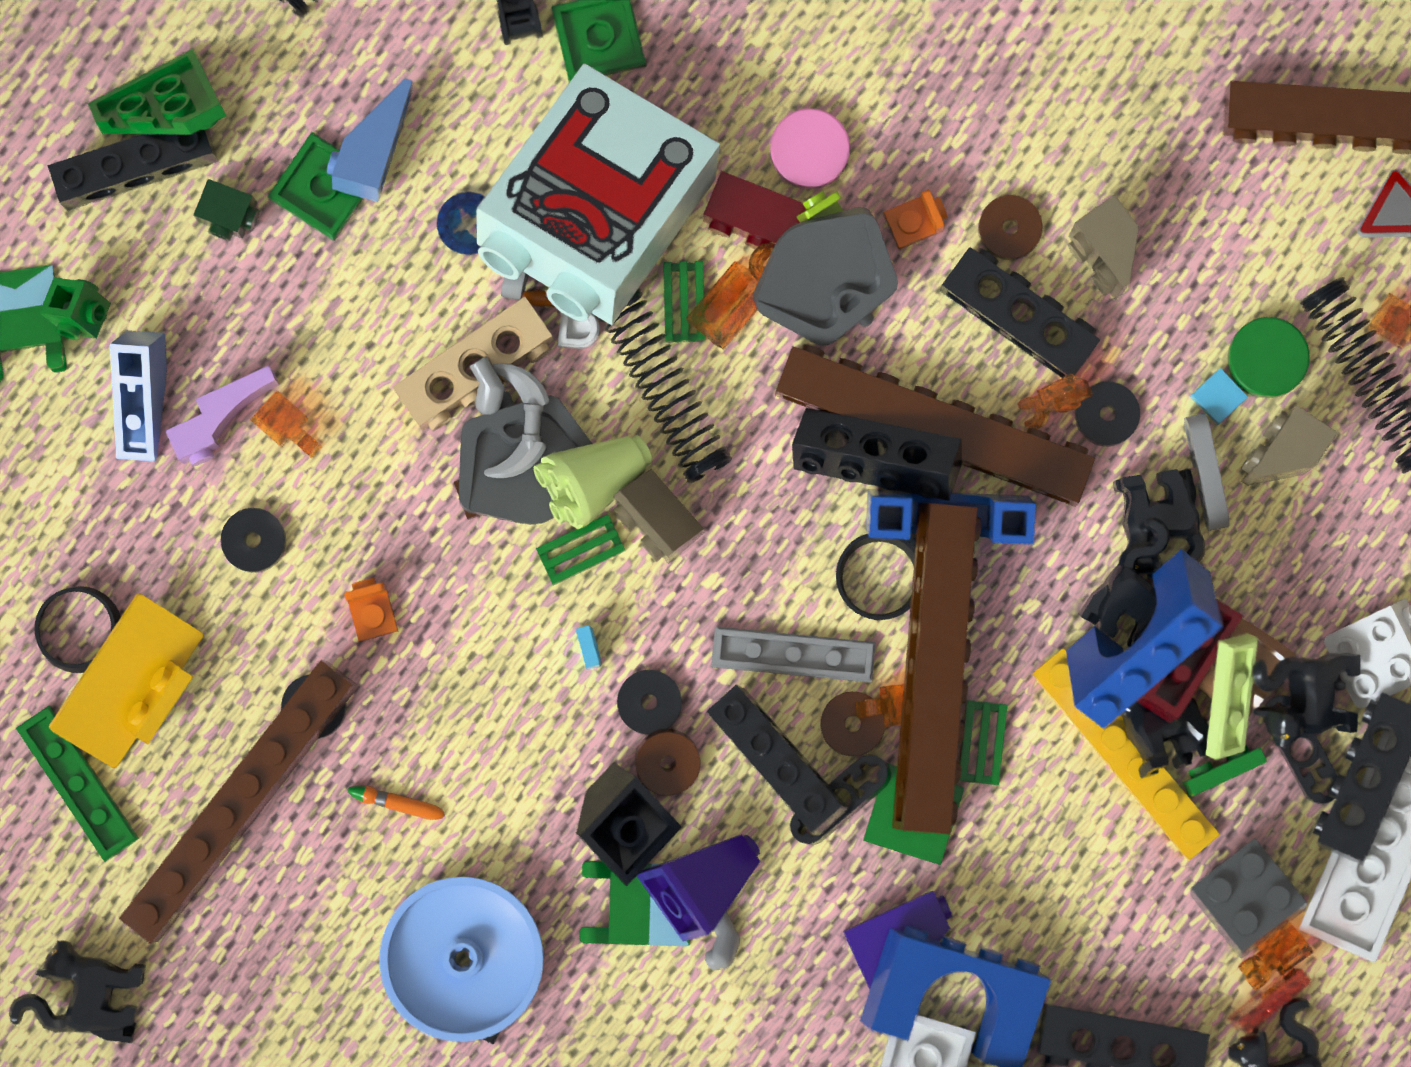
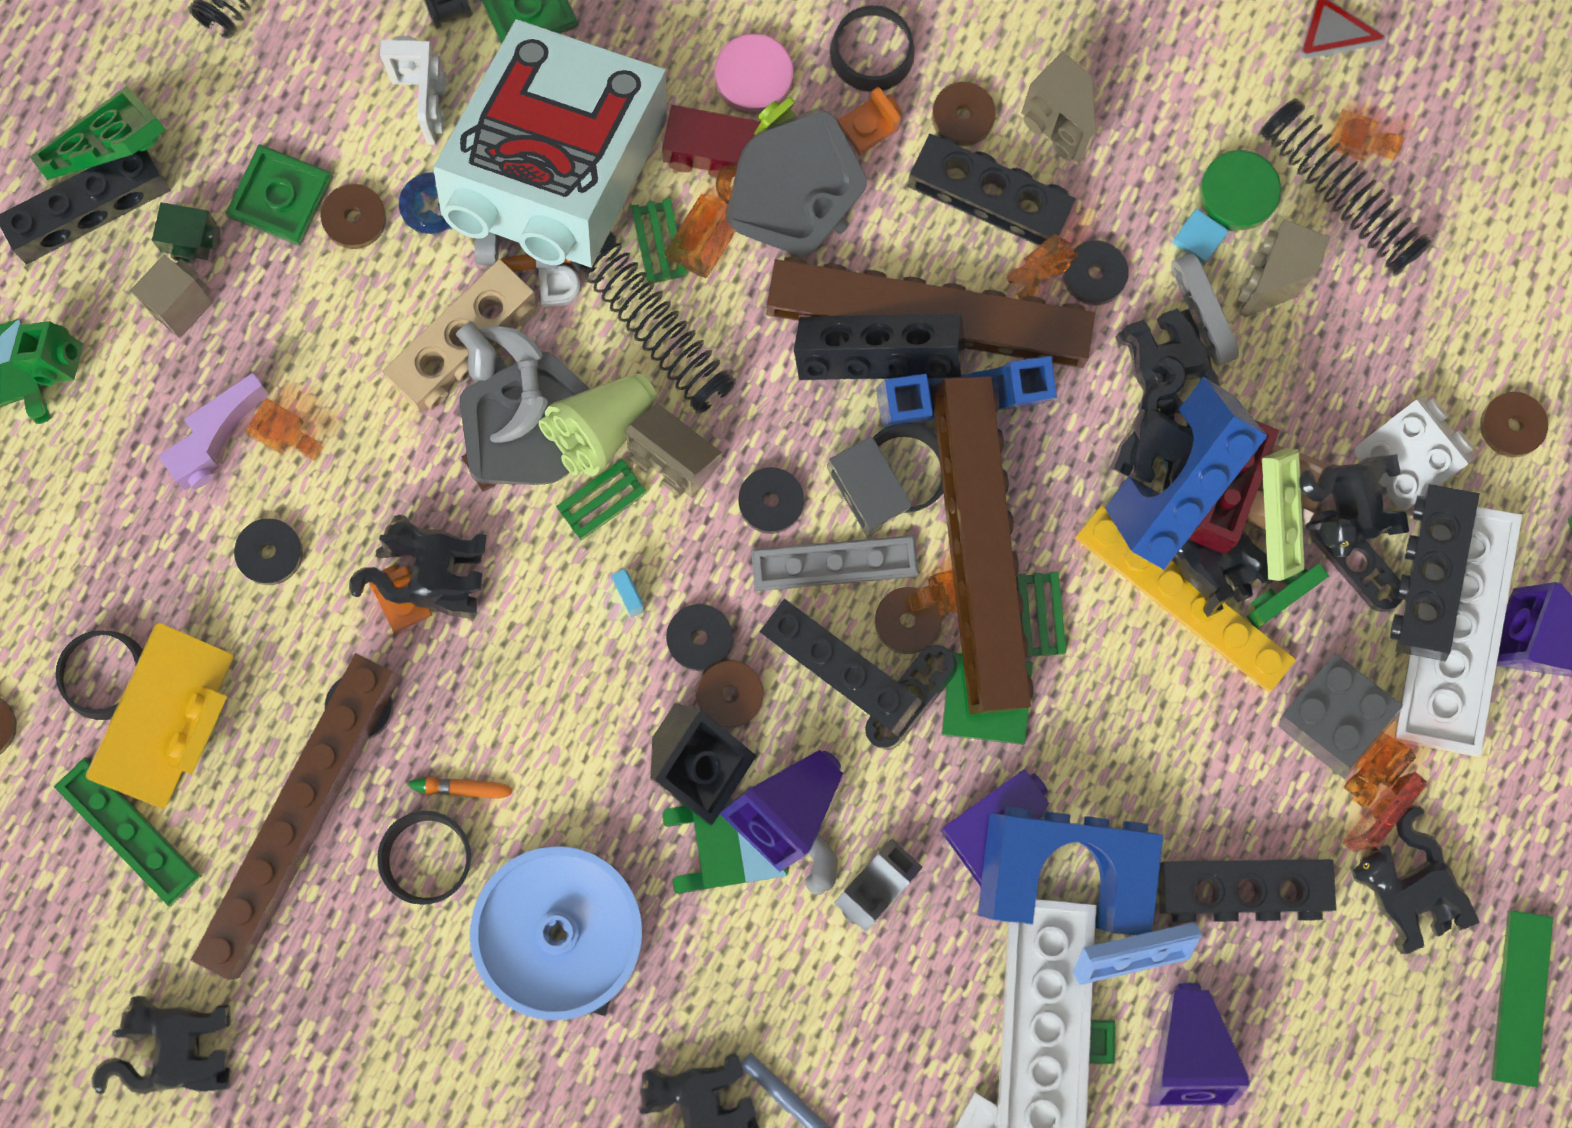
camera: 20 degrees left, 5 degrees down
(138, 393) = (125, 426): medium blue slope -> none
(205, 274) = (173, 294): none -> dark tan brick
(311, 863) = (386, 844): none -> black tyre
(369, 147) = (318, 144): medium blue slope -> none
(398, 238) = (348, 199): none -> reddish brown piece
(405, 597) = (432, 576): none -> black animal
(473, 80) = (415, 64): none -> white bracket
(749, 563) = (765, 518): none -> black piece
(772, 973) = (878, 885): none -> dark grey brick
(840, 586) = (868, 485): none -> dark grey panel
(924, 180) = (865, 82): none -> black tyre

